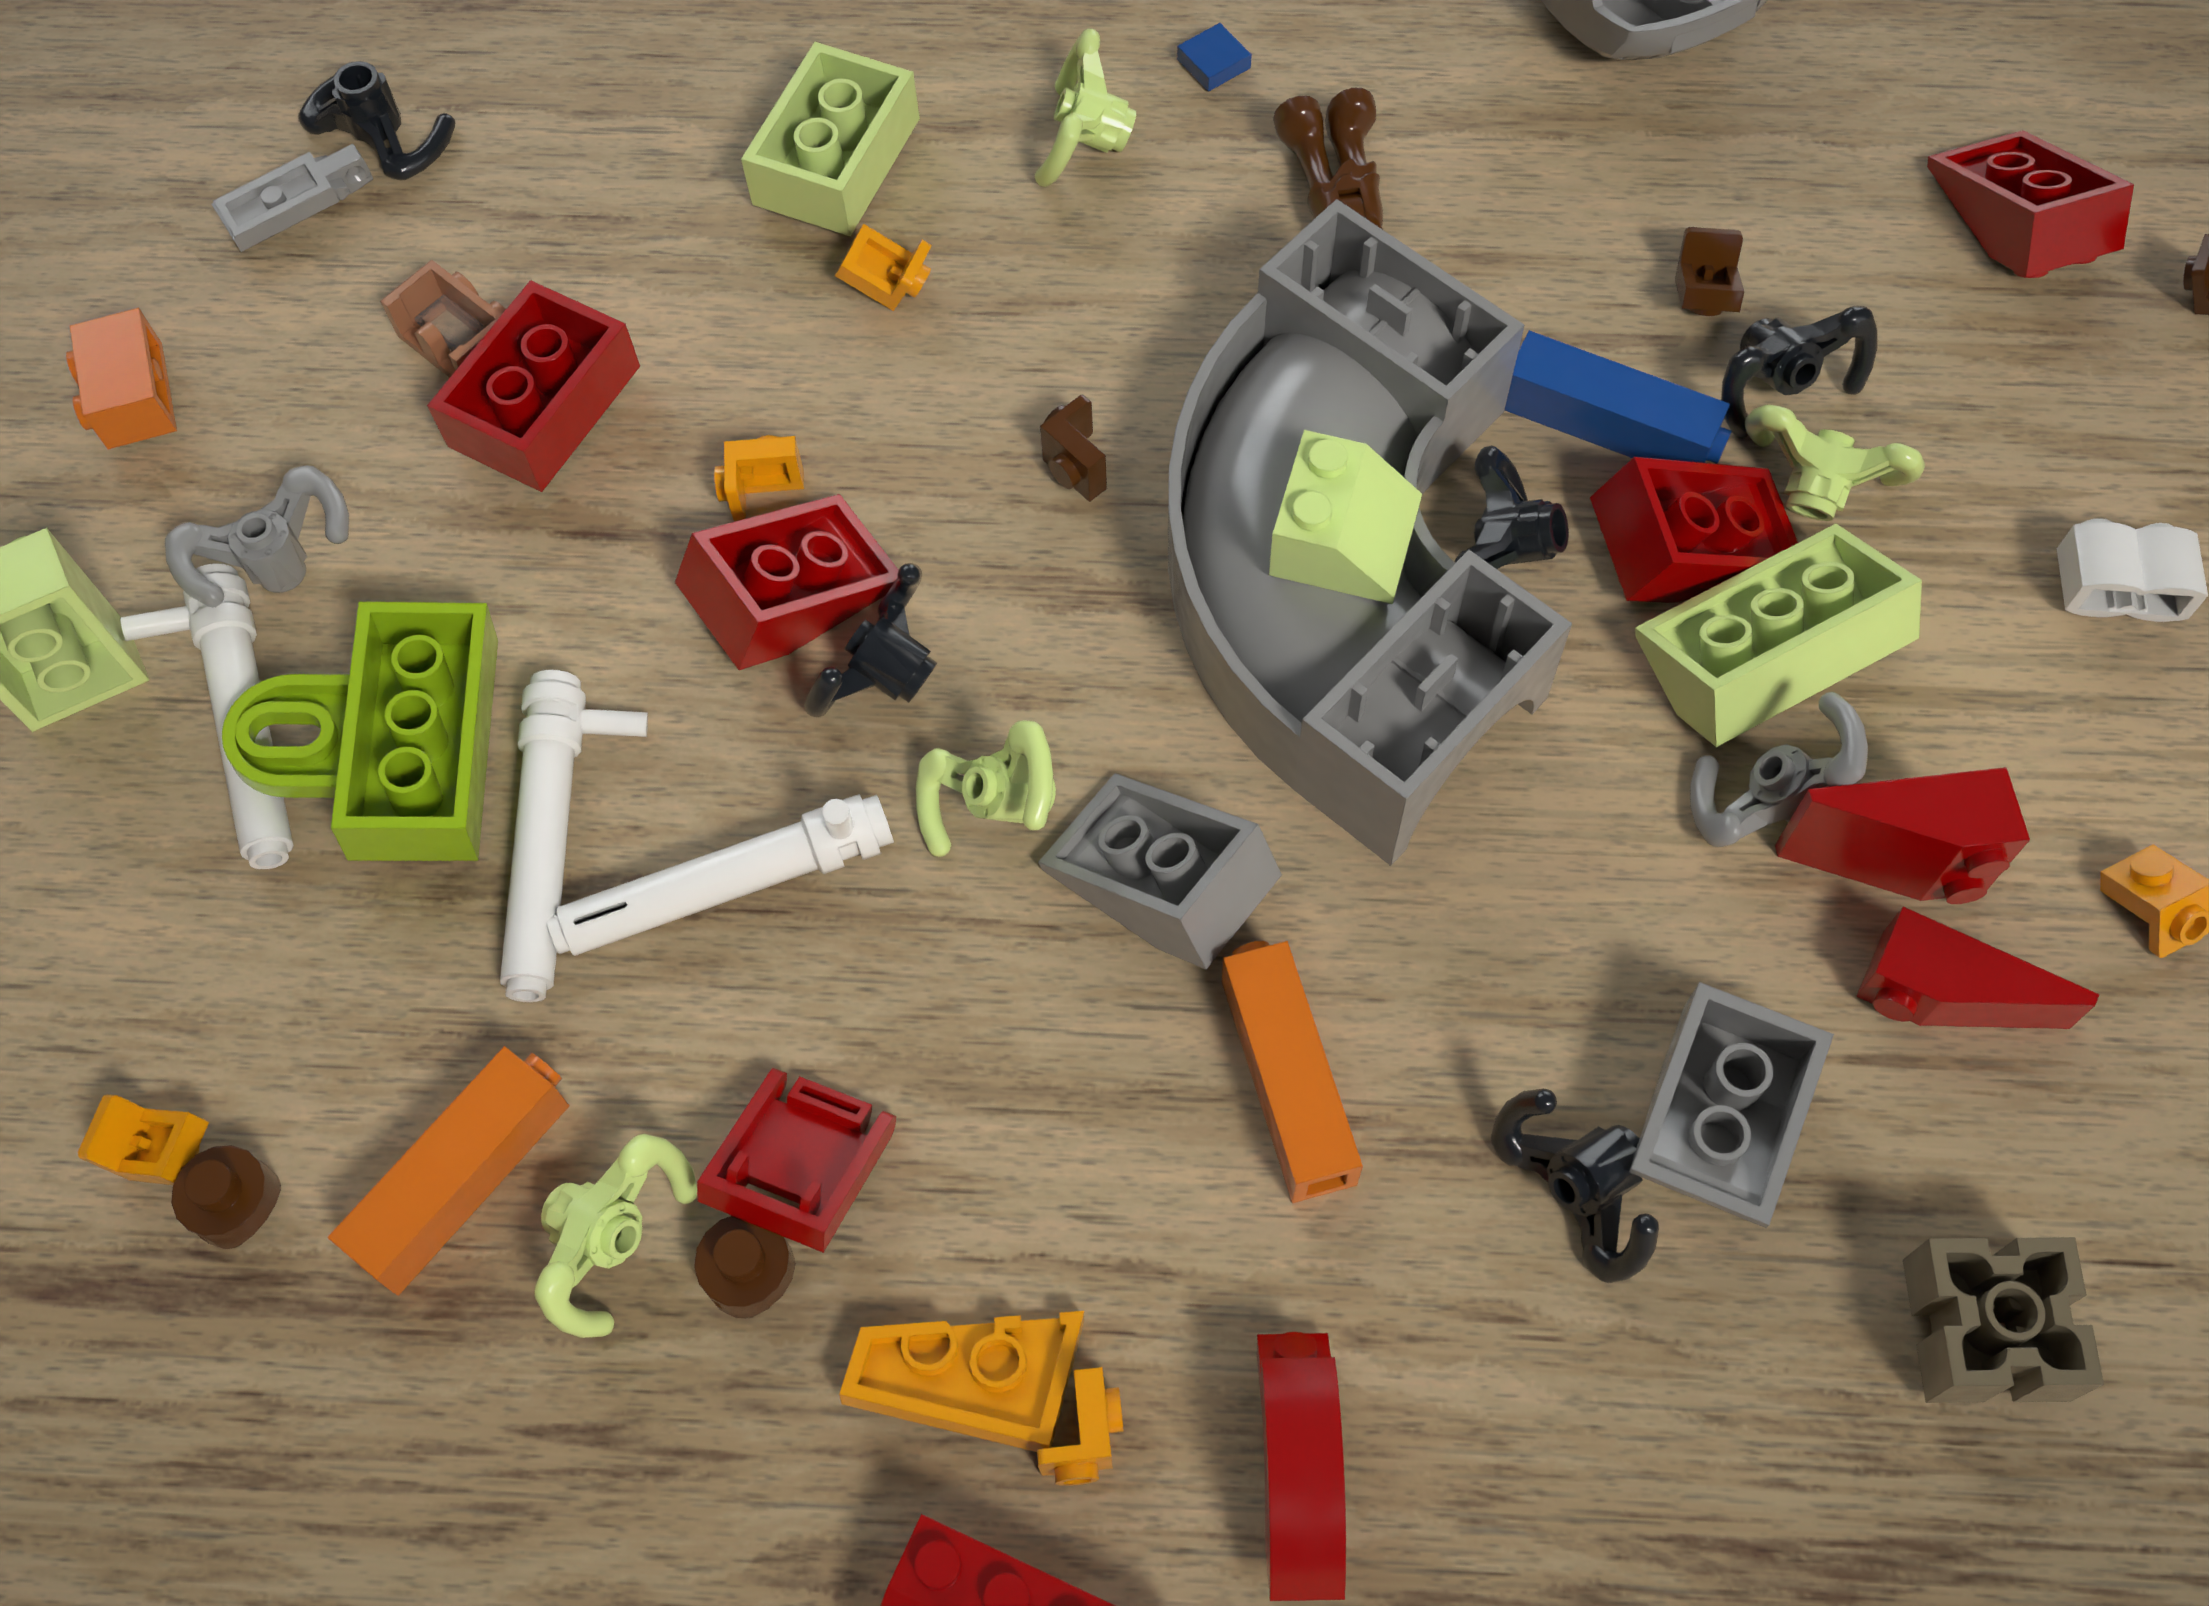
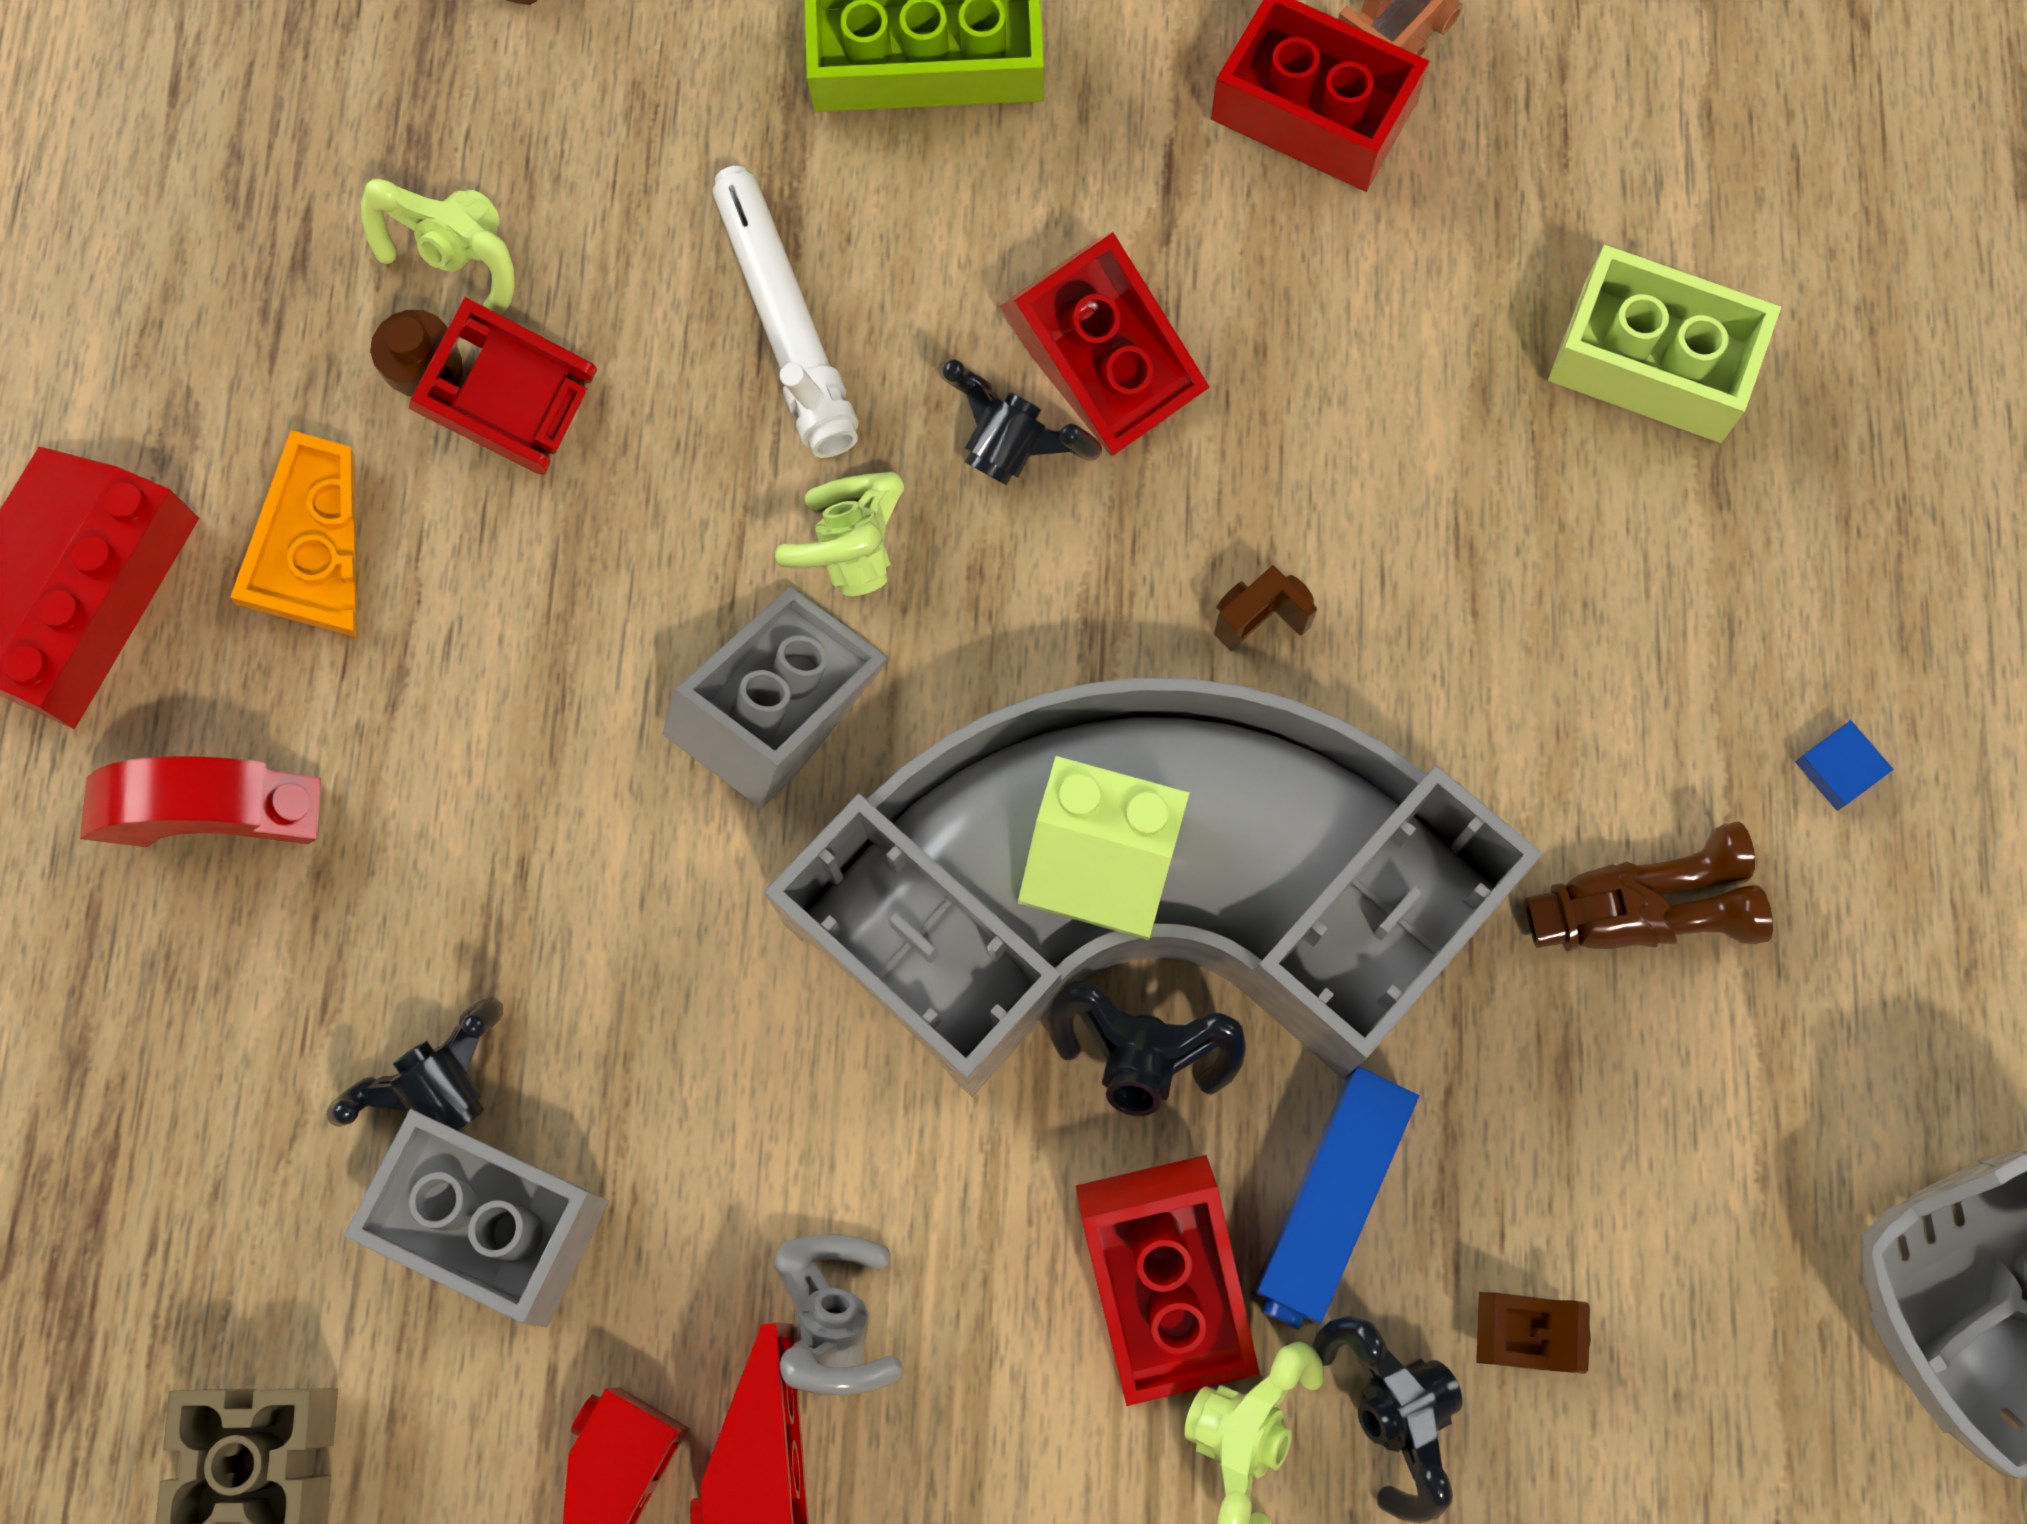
camera: 90 degrees right, 10 degrees up
(451, 1169) = (517, 121): orange brick -> none
(549, 744) = (925, 152): white cylinder -> none
(757, 467) = (1228, 287): light orange bracket -> none
(884, 268) = (1496, 410): light orange bracket -> none
(1085, 109) = (1724, 615): yellowish green piece -> none
(1097, 1417) = (249, 638): light orange bracket -> none
(1290, 1071) = (558, 809): orange brick -> none
(1781, 632) = (1027, 1350): yellowish green slope -> none

